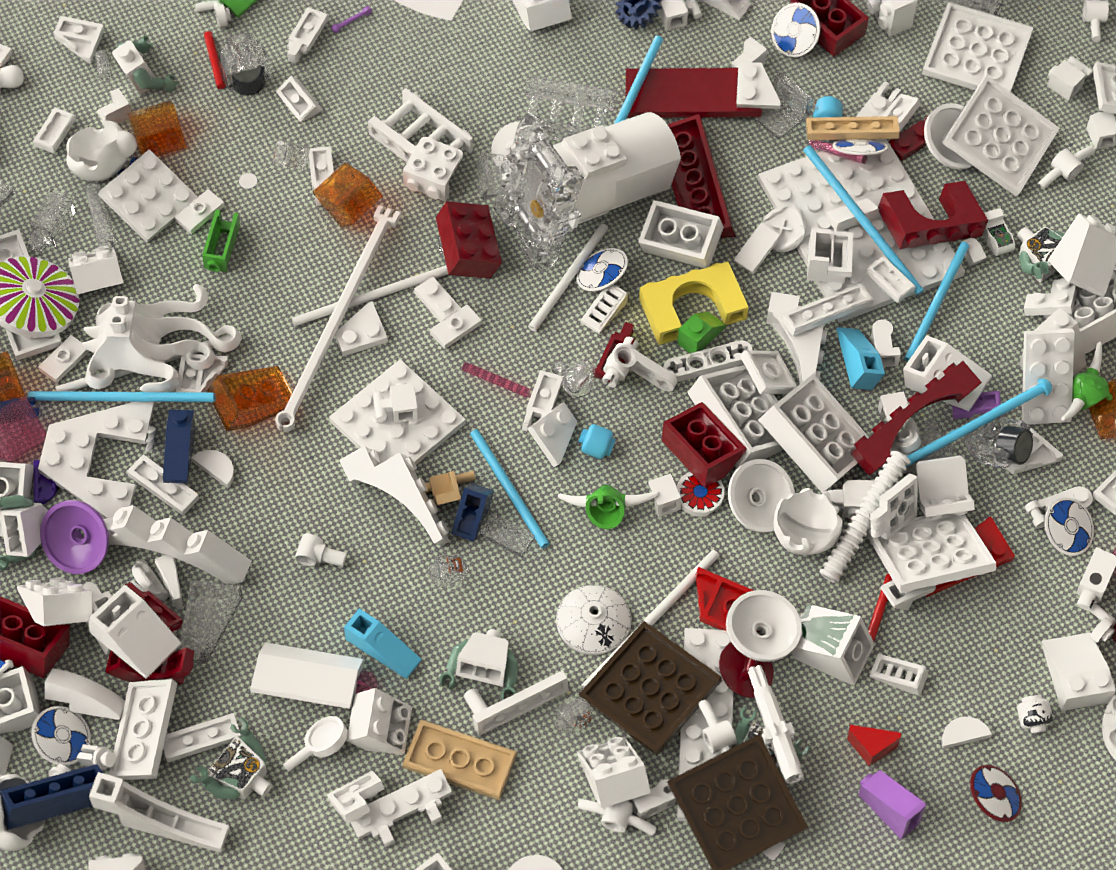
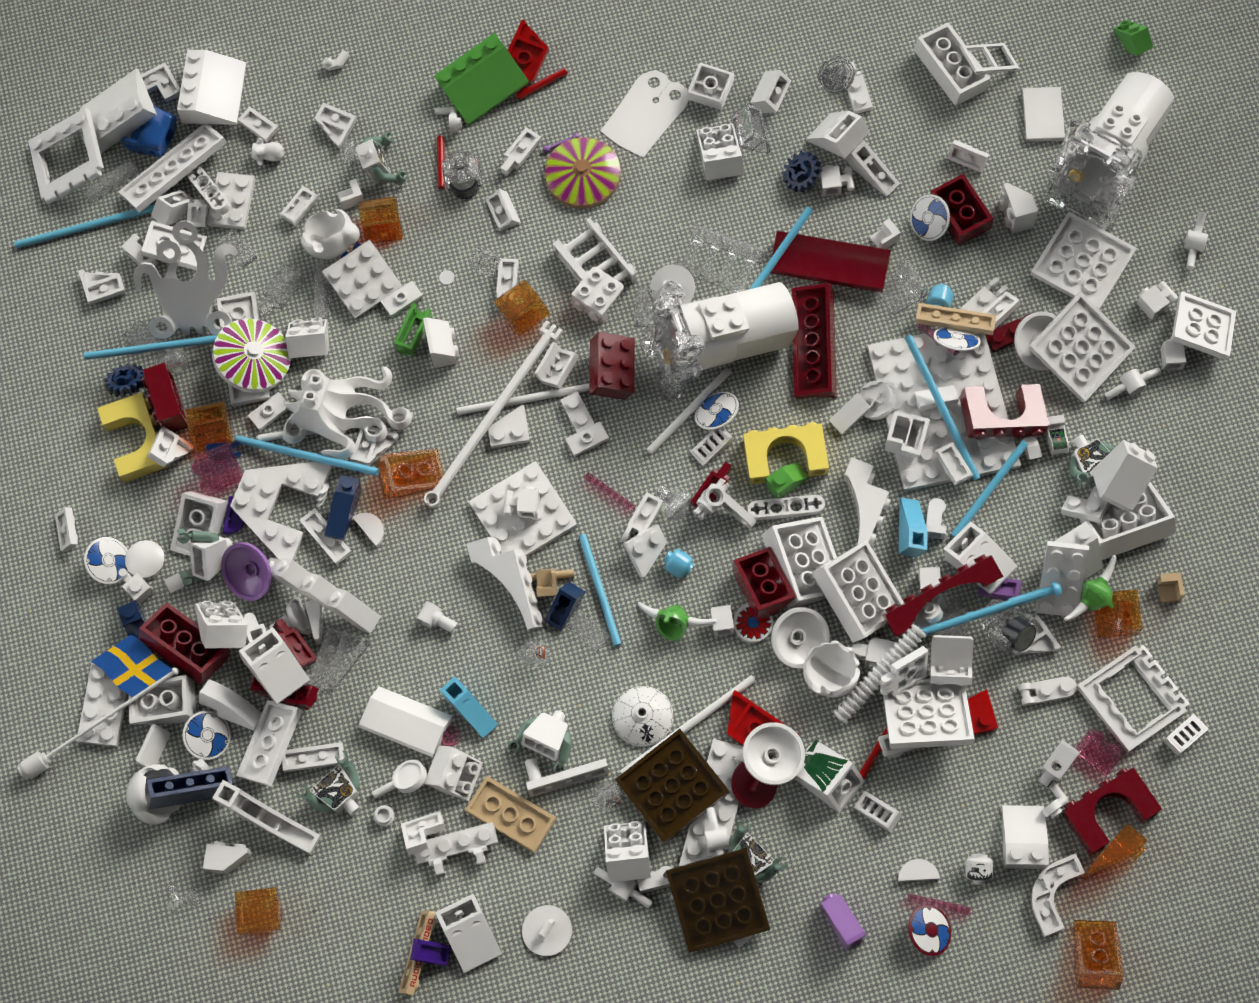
camera: 20 degrees right, 10 degrees up
(96, 755) = (233, 760): white arm -> none
(258, 248) = (440, 342): none -> white slope
(303, 789) = (384, 815): none -> white plate
(384, 46) = (582, 173): none -> dish
(401, 253) = (556, 366): none -> white bracket
(680, 234) = (787, 392): white brick -> none
(755, 87) = (880, 267): white wing -> none
(768, 372) = (833, 528): white plate -> none
(776, 731) = (762, 847): white piece -> none
(827, 309) = (893, 482): white tile -> none
(872, 743) = (841, 867): red slope -> none
(1002, 764) = (938, 903): none -> clear pink bar
(1069, 526) = (1049, 711): shield -> none

